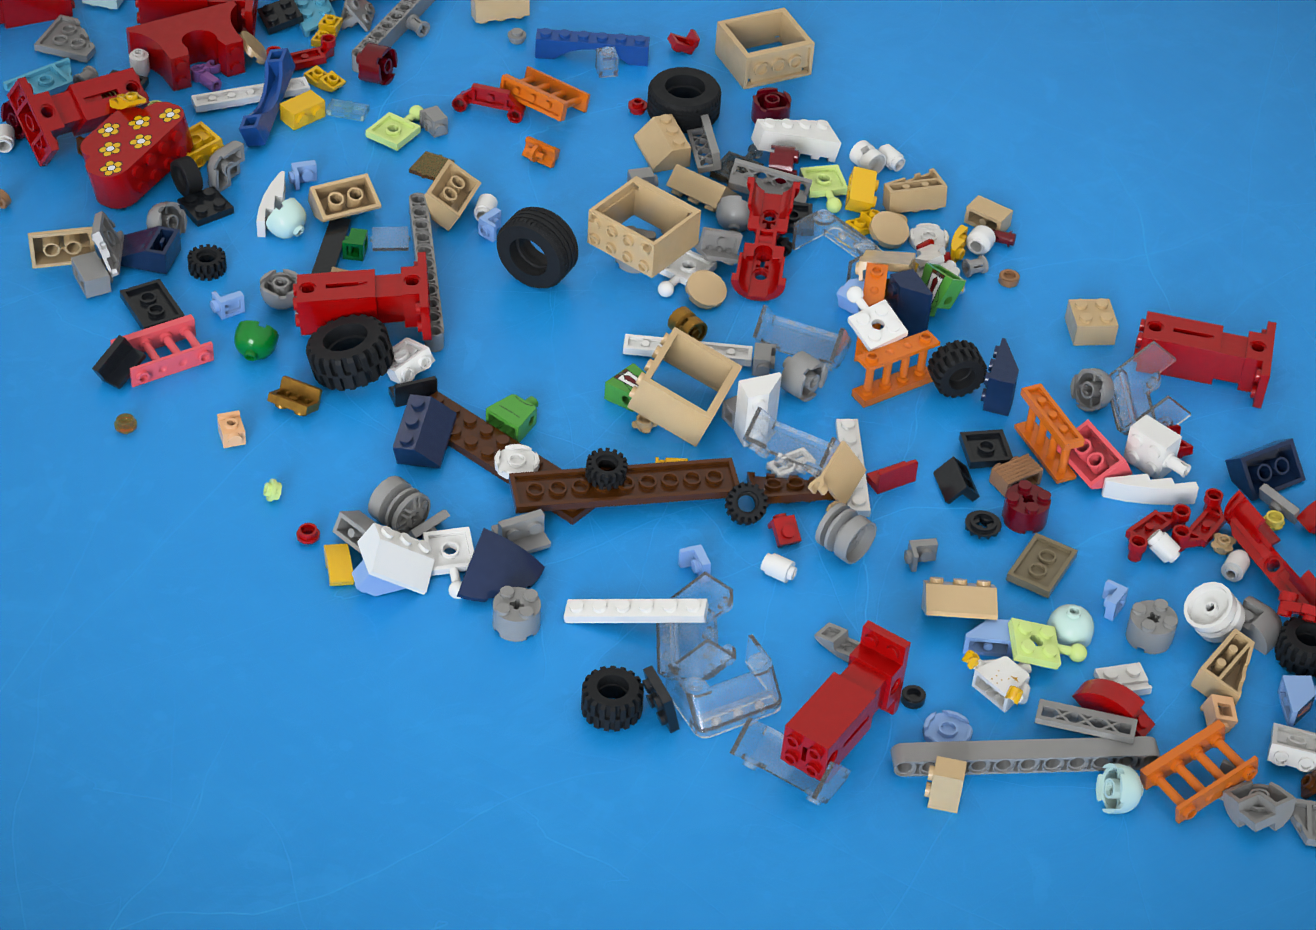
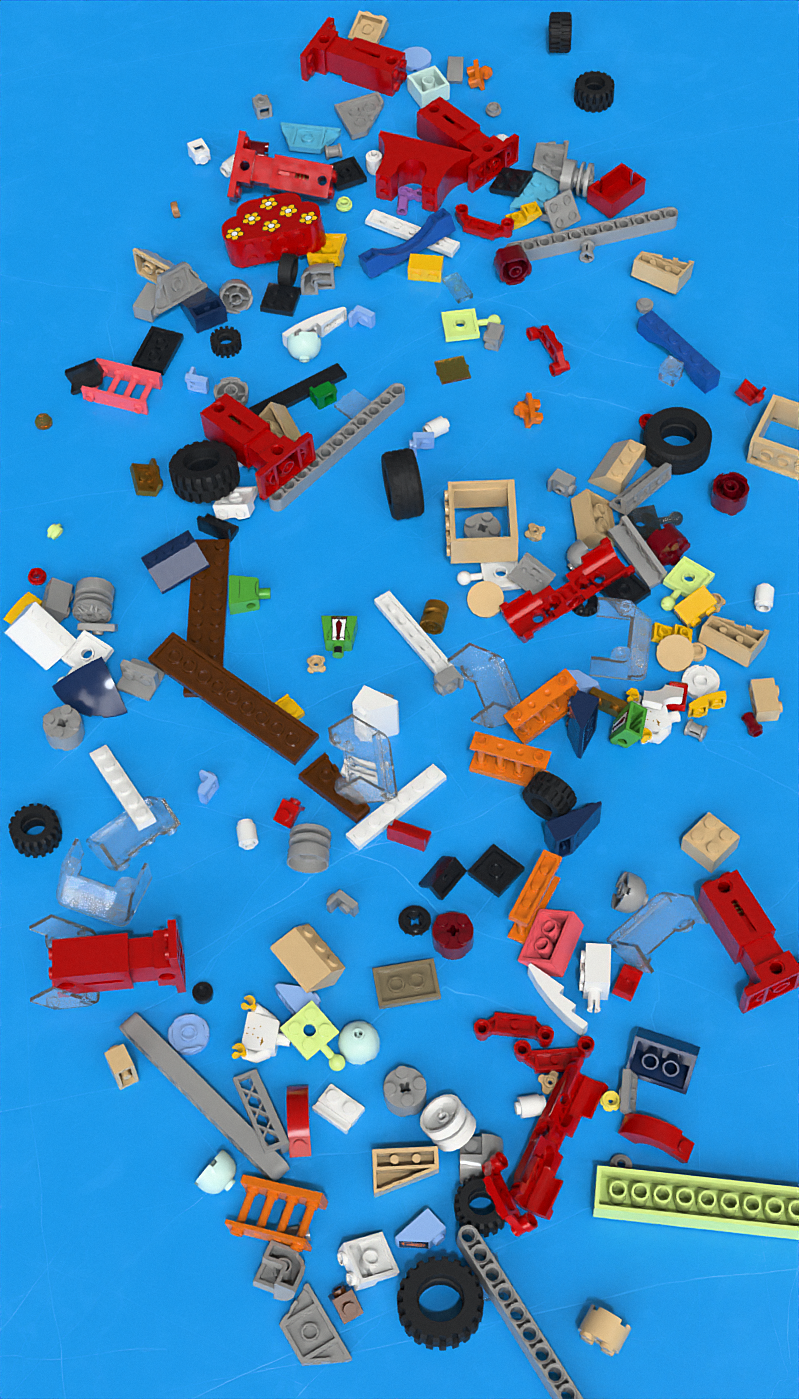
camera: 55 degrees right, 15 degrees up
(127, 100) = (299, 189): yellow slope -> none
(231, 429) = (87, 471): light nougat brick -> none
(253, 47) = (454, 194): tan tile -> none
(255, 341) = (172, 421): green cylinder -> none
(325, 81) = (473, 252): yellow slope -> none
(343, 198) = (354, 356): tan slope -> none
(450, 194) = (417, 400): tan slope -> none
(516, 459) = (198, 627): white tile -> none
(545, 93) = (577, 372): orange fence -> none
(606, 459) = (223, 667): black tyre -> none
(660, 698) = (51, 855): black plate -> none
(669, 408) = (353, 626): tan window -> none
(758, 497) = (274, 773): black tyre -> none
(803, 375) = (447, 714): light grey brick -> none
(808, 137) = (709, 530): white wedge -> none
(836, 640) = (212, 918): light grey slope -> none
(839, 476) = (354, 807): tan flag -> none
(867, 157) = (743, 585): white wheel -> none
(877, 313) = (510, 709): white plate -> none
(895, 260) = (605, 680): tan panel -> none
(980, 240) = (727, 713): white head -> none
(1008, 278) = (710, 759): medium nougat tile -> none
(1015, 470) = (484, 906): medium nougat brick -> none
(1115, 598) = (413, 1053): light blue bracket -> none
(1164, 546) = (499, 1046): white brick -> none
(1225, 713) = (358, 1183): light nougat brick -> none

